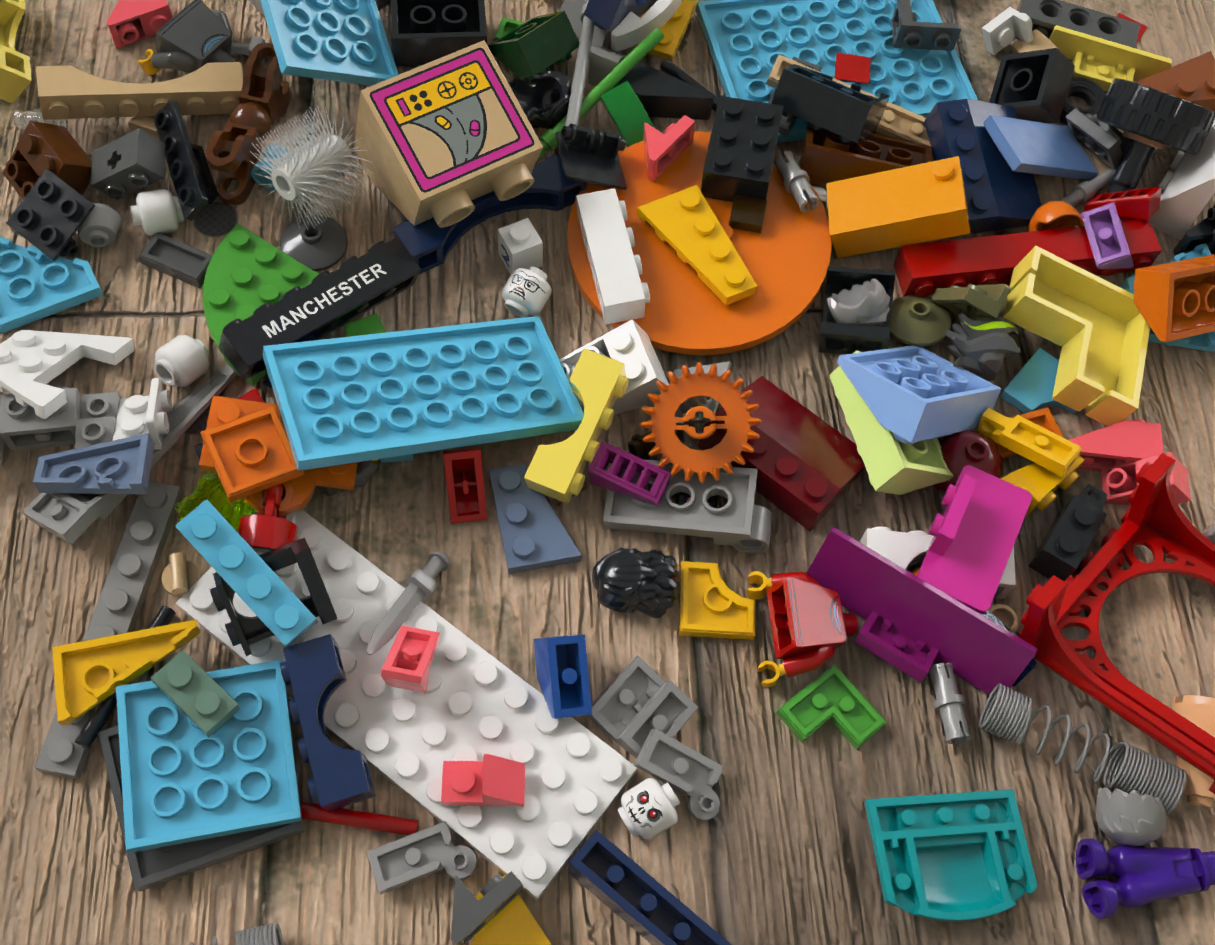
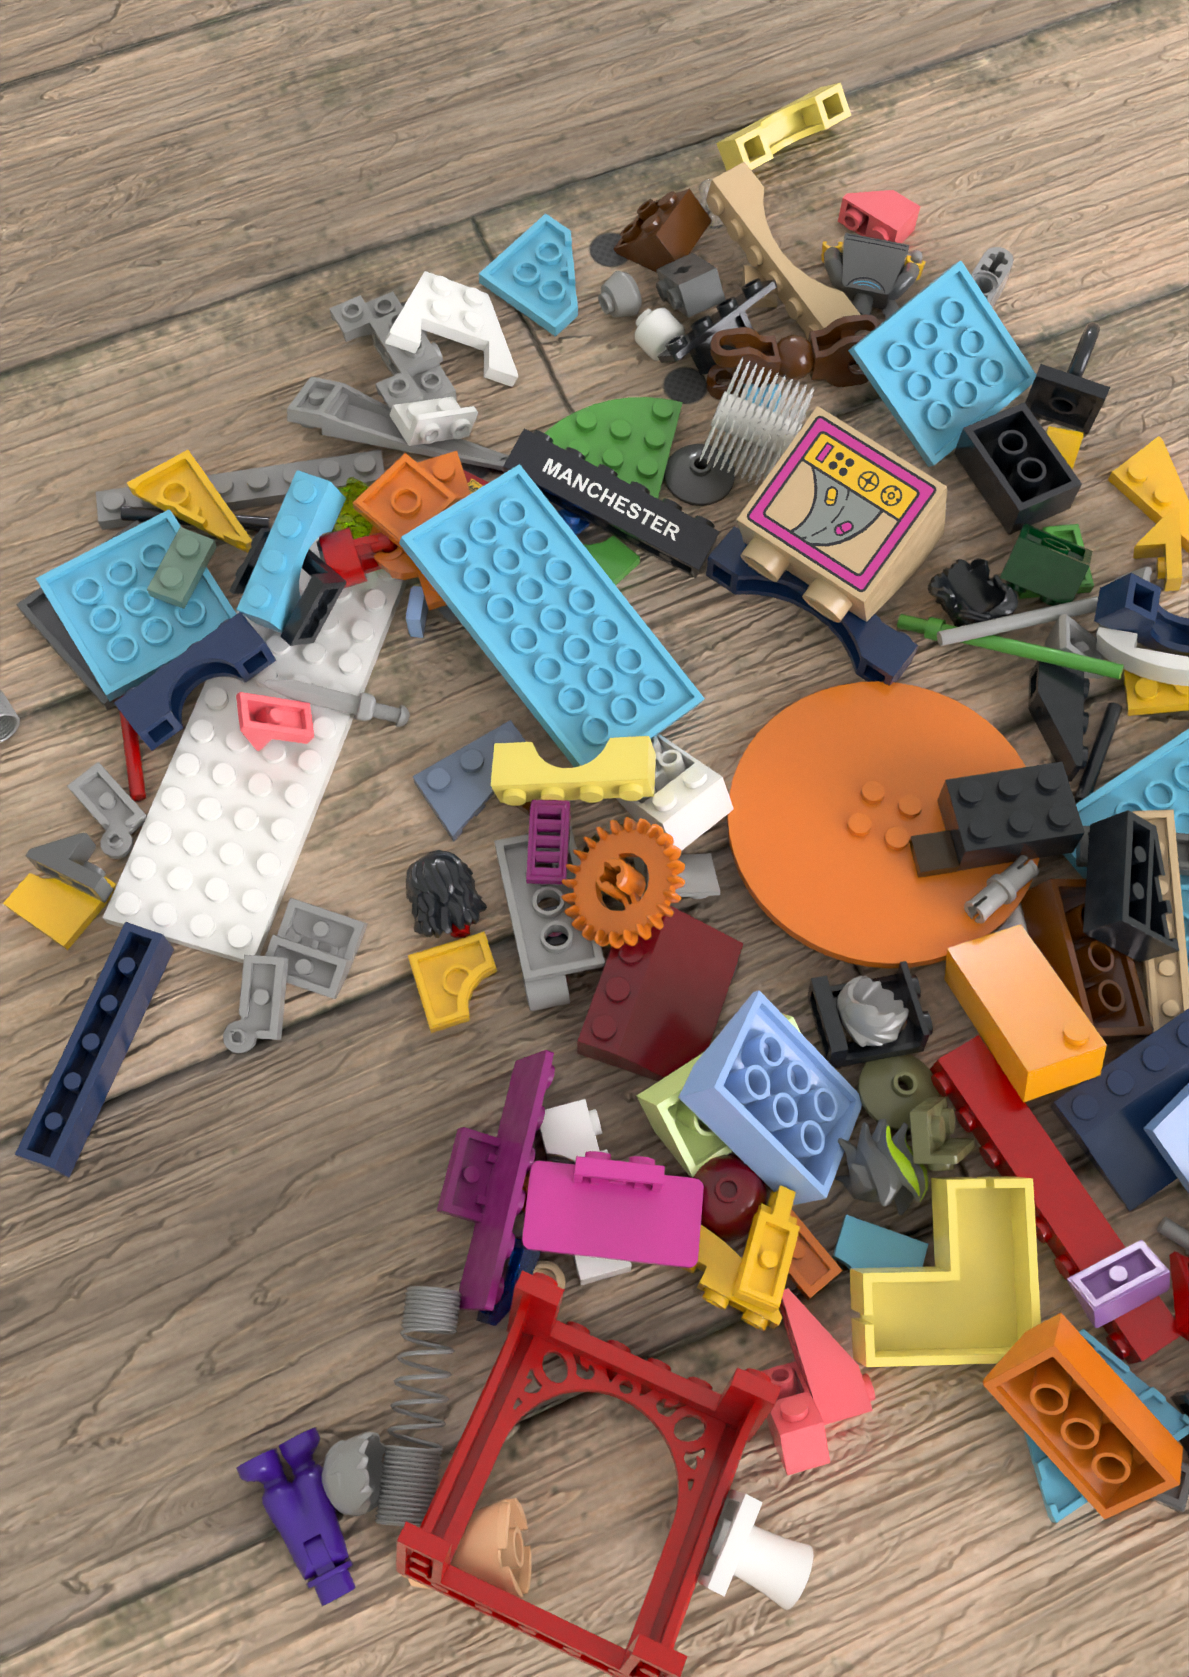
camera: 75 degrees right, 5 degrees up
(51, 216) = (604, 256): black hinge -> none
(102, 468) = (363, 407): sand blue wing -> none
(176, 259) = (621, 371): dark grey tile -> none
(181, 361) = (507, 420): white head -> none
(342, 506) = (416, 612): none -> light blue tile
(465, 485) = (481, 705): red slope -> none
(483, 783) = (185, 830): coral slope -> none
(520, 246) = (777, 650): white brick -> none
(526, 292) = (727, 677): white head -> none
(564, 674) = (315, 859): blue slope -> none
(591, 156) = (916, 671): black hinge -> none
(611, 256) = (804, 735): white brick -> none
(626, 112) = (1005, 689): green slope -> none
(649, 808) = (211, 983): white head -> none
(665, 148) = (968, 738): coral slope -> none
(700, 240) = (870, 813): yellow wing -> none
(804, 622) = (456, 1068): red torso -> none
(833, 699) = (391, 1130): bright green tile -> none
(949, 703) = (426, 1250): light grey pin -> none
(951, 853) = (257, 1290): teal slope -> none
(1055, 216) = (1123, 1211): orange hair -> none
(1070, 534) = (684, 1336): black hinge -> none

